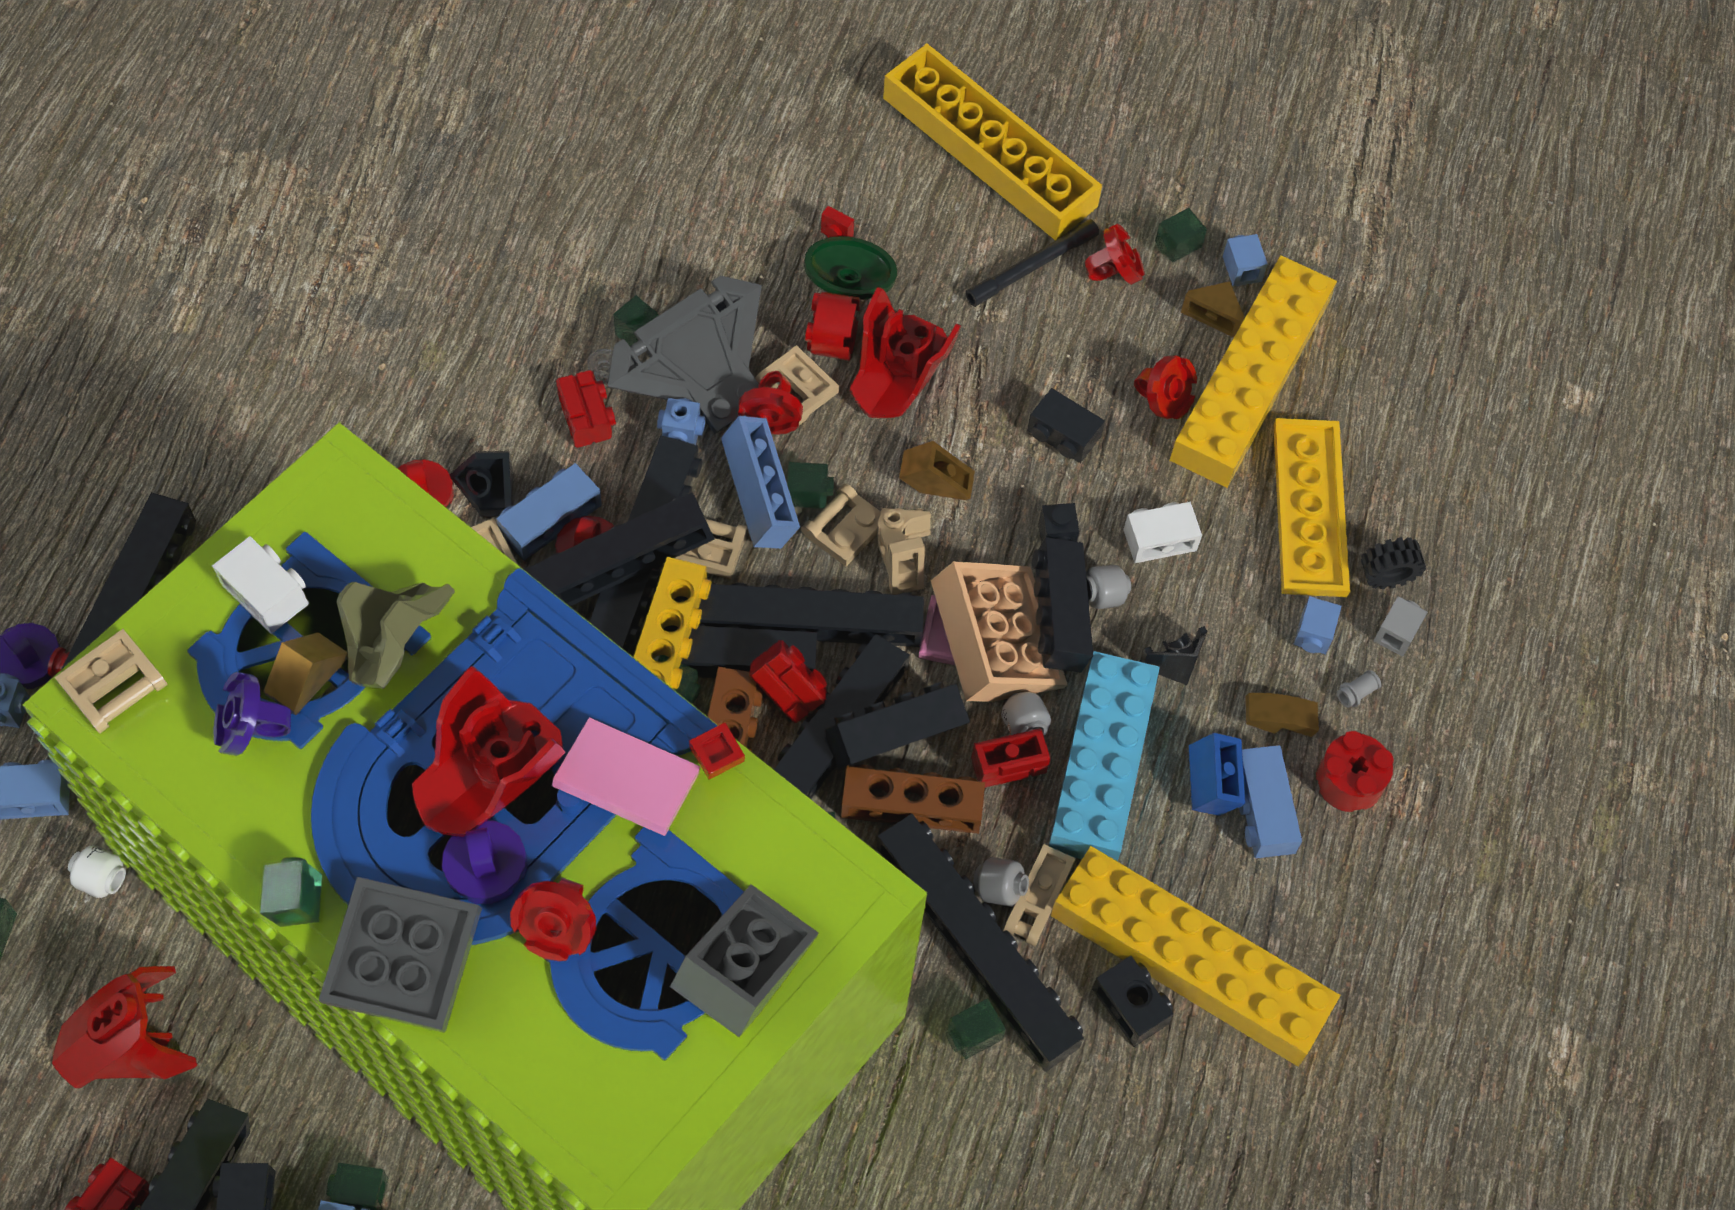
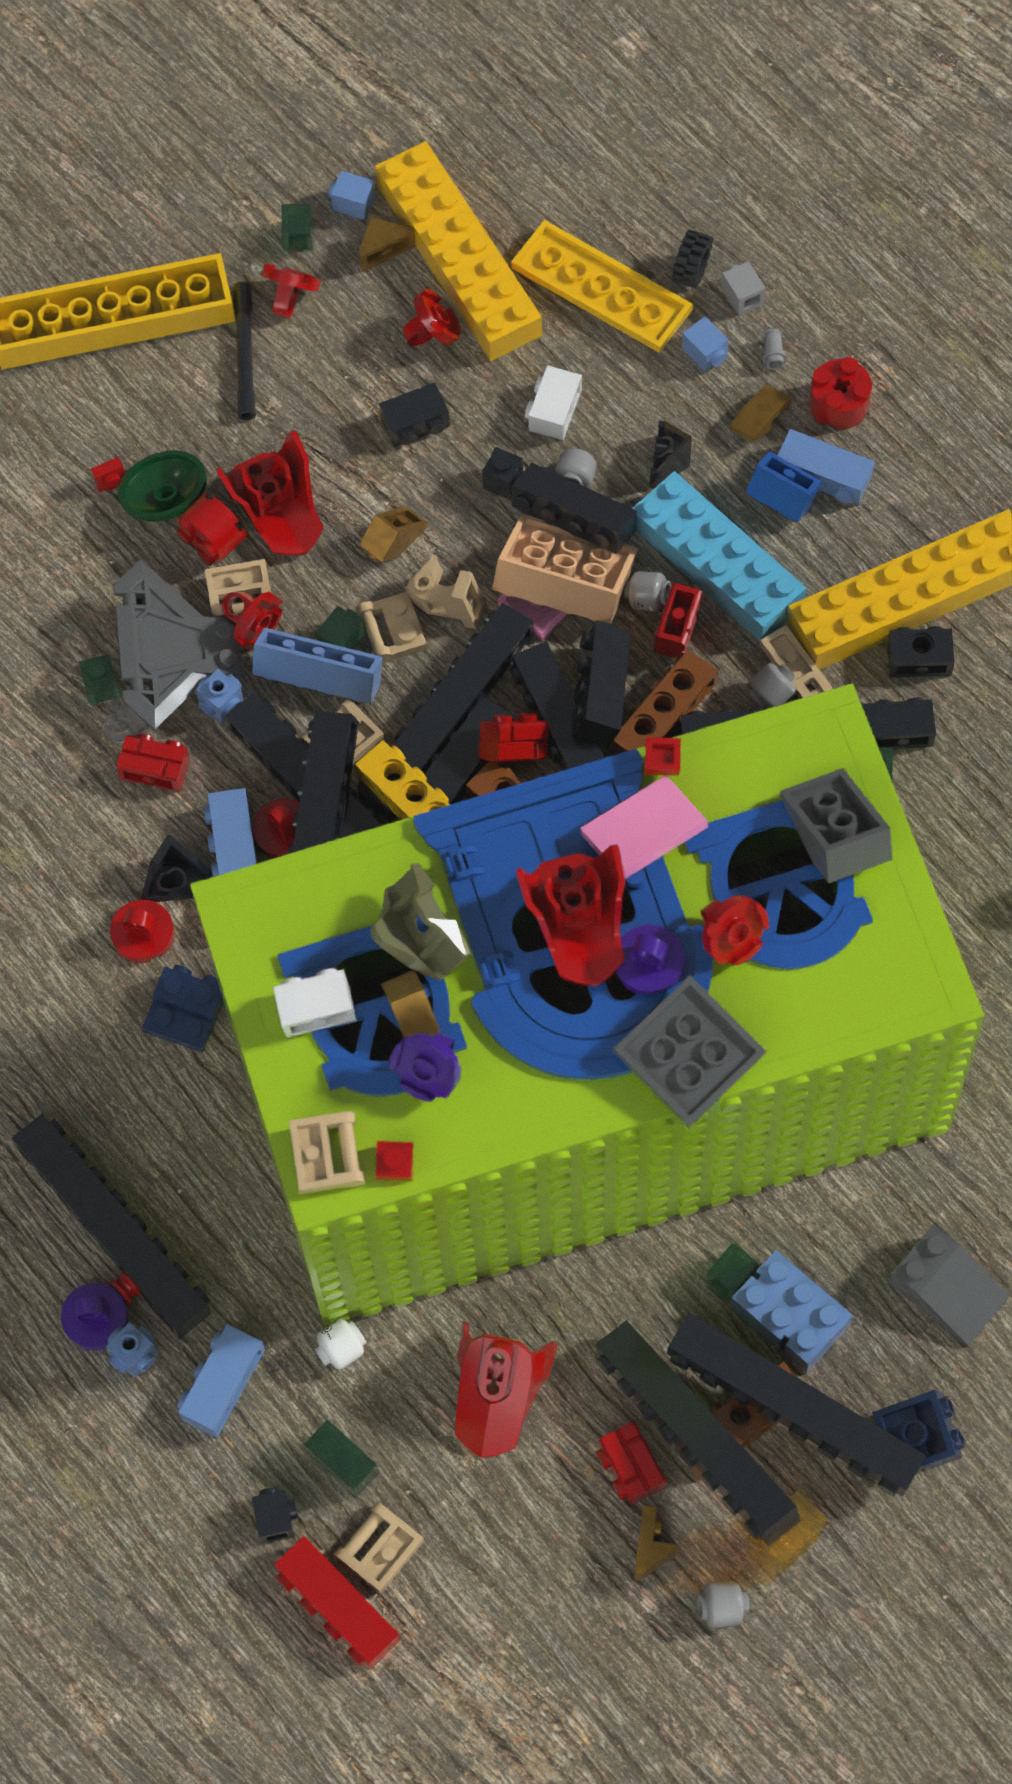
camera: 50 degrees left, 5 degrees up
(137, 747) = (394, 1160): none -> red plate
(291, 892) = (592, 1102): clear green brick -> none

